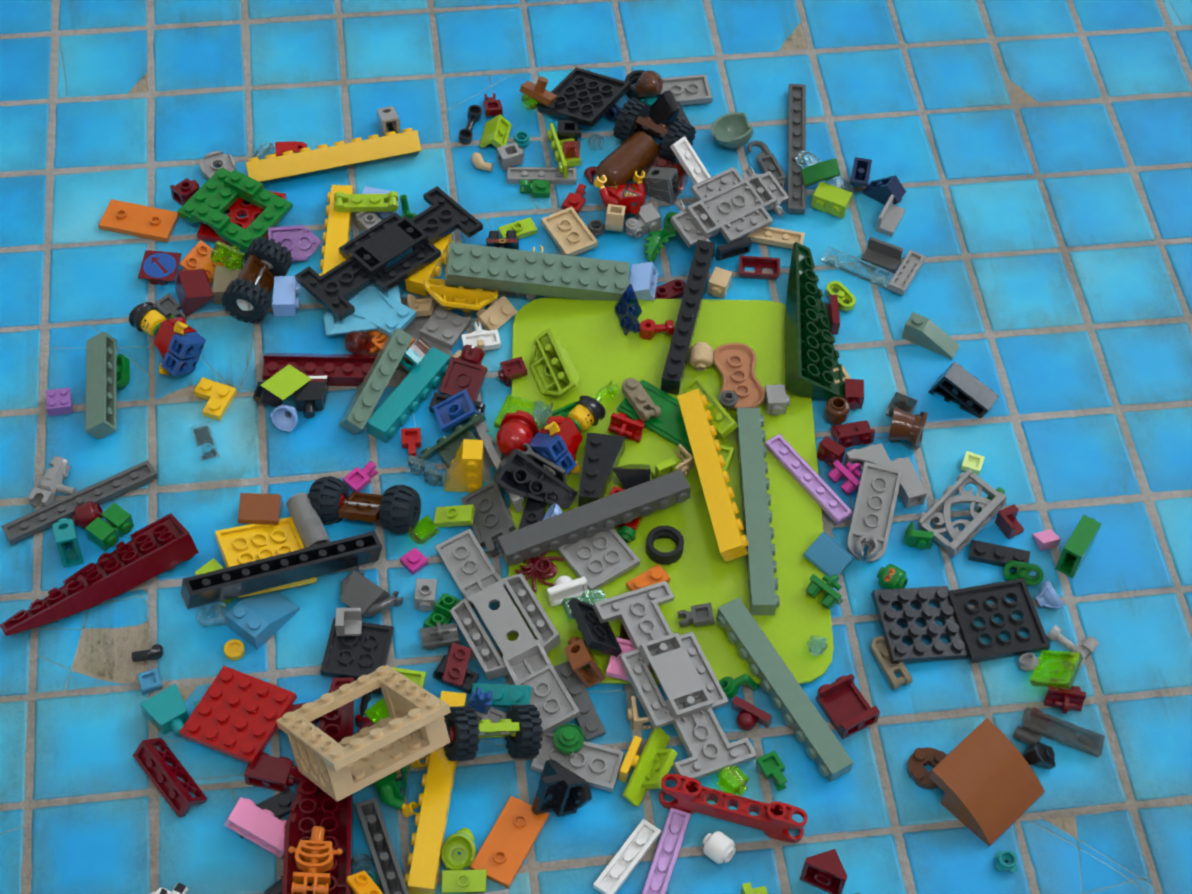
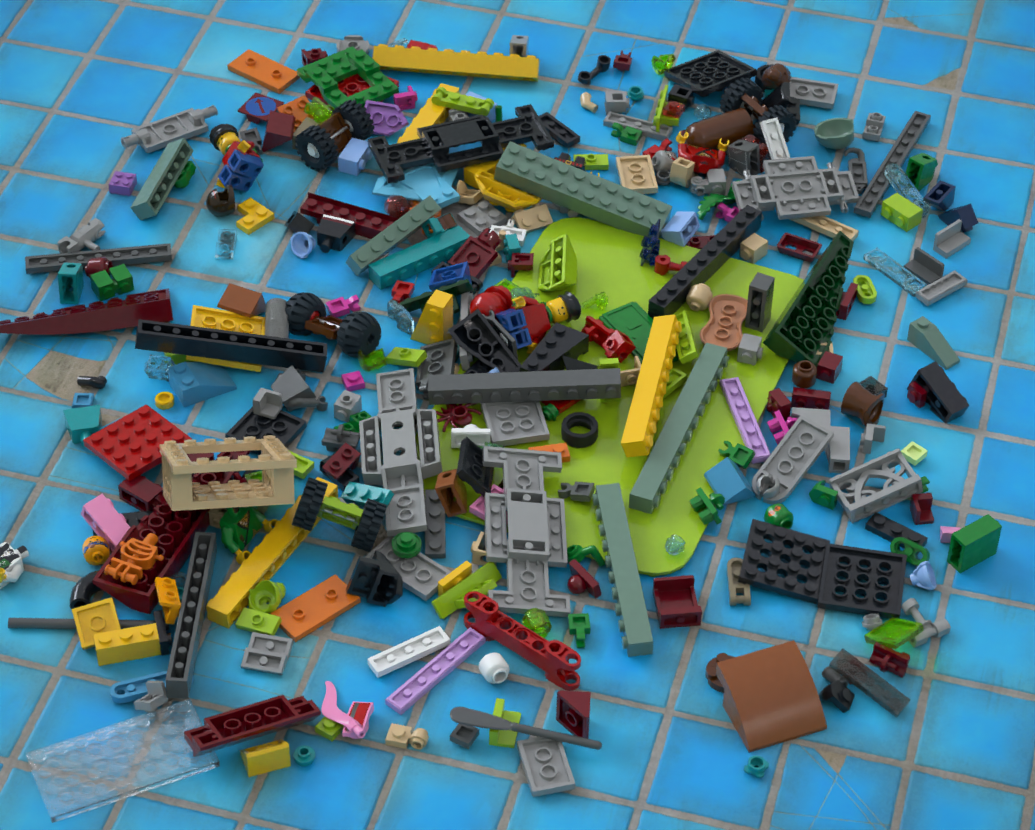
camera: 25 degrees right, 10 degrees down
(77, 321) = (169, 129): none -> light grey plate
(165, 776) = (55, 468): dark red fence -> none
(178, 392) = (221, 203): none -> dark brown helmet
(257, 859) = (94, 549): none -> light orange head
(286, 382) = (315, 215): lime sticker -> none
(302, 214) = (406, 100): none -> dark pink bracket
(475, 206) = (559, 131): none -> black plate
(481, 701) = (344, 491): blue plate -> none
(494, 355) = (511, 246): none -> teal piece
(496, 132) = (615, 81): lime panel -> none
(538, 91) = (667, 56): dark orange tile -> none
(590, 210) = (663, 160): none -> light grey head
(640, 399) = (621, 313): dark tan plate -> none
(656, 438) = (618, 346): none -> red brick
(681, 250) = (726, 212): none -> dark pink plate
(728, 403) = (702, 335): dark grey plate -> none
(733, 249) = (782, 225): black tile -> none
(758, 111) = (874, 126): none -> light grey slope
(767, 347) = (759, 302): none -> dark grey brick
(820, 171) = (899, 183): green slope -> none
(824, 521) = (739, 454): none -> green plate
(828, 145) = (921, 170): none -> green torso
(926, 458) = (873, 433): none -> light grey bracket
(944, 397) = (916, 394): none -> dark red plate

